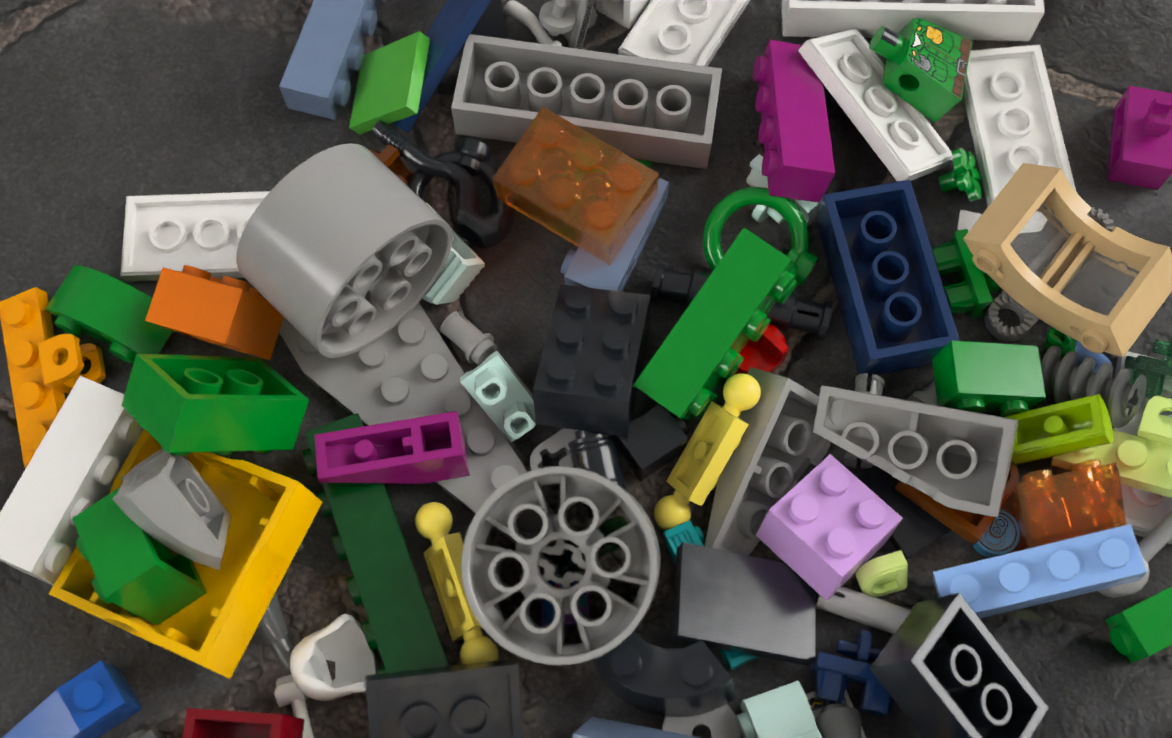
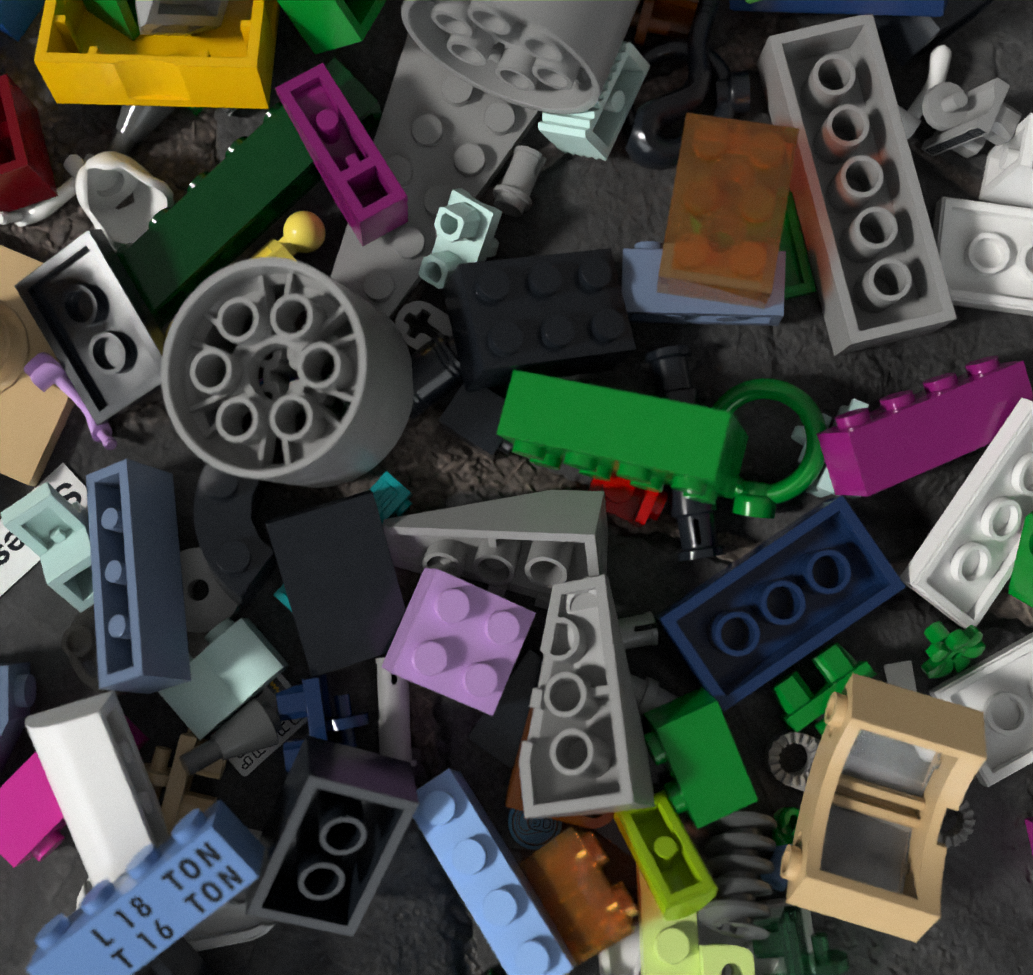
camera: 65 degrees right, 15 degrees up
(707, 451) = (489, 482): light yellow plate -> none
(883, 575) = (434, 716): yellowish green tile -> none

